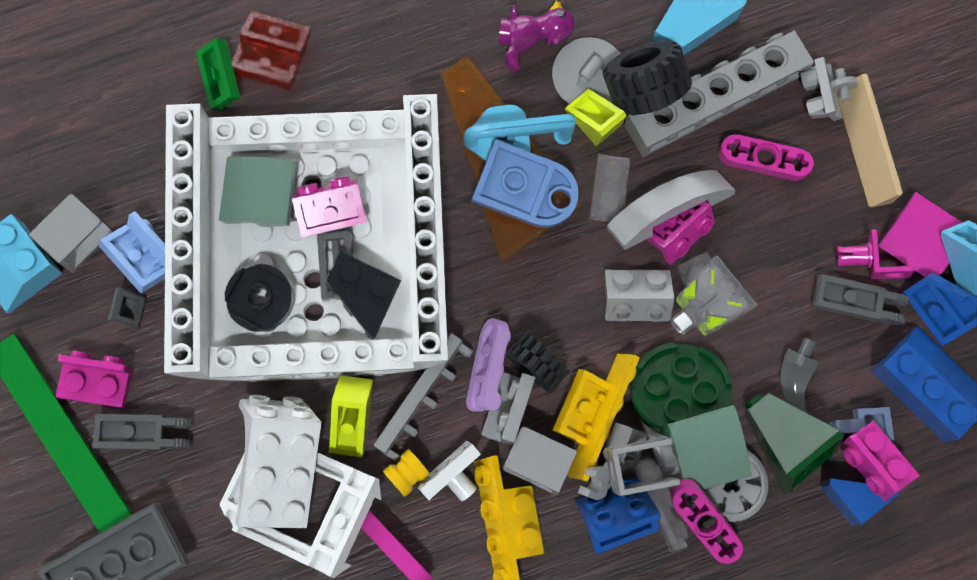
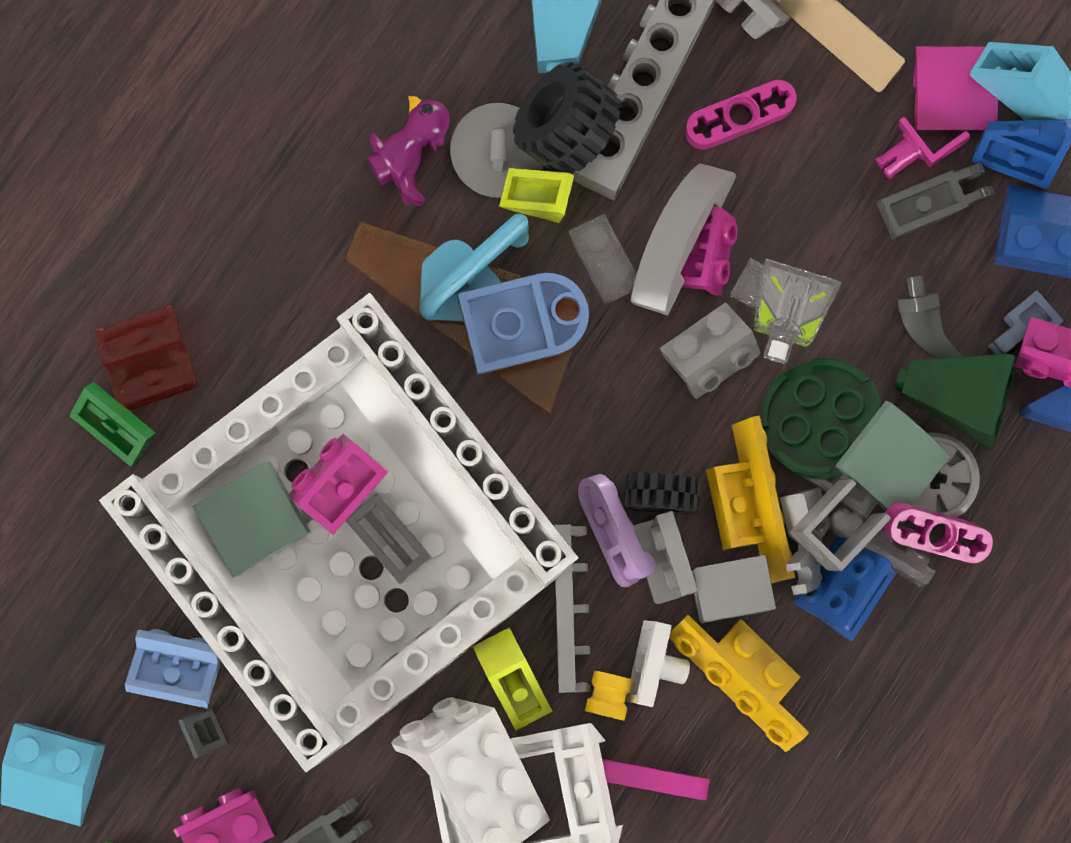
camera: 30 degrees left, 5 degrees up
(70, 233) = (87, 699): light grey piece -> none
(255, 279) = (319, 646): black plate -> none
(363, 291) = (437, 546): black wing -> none

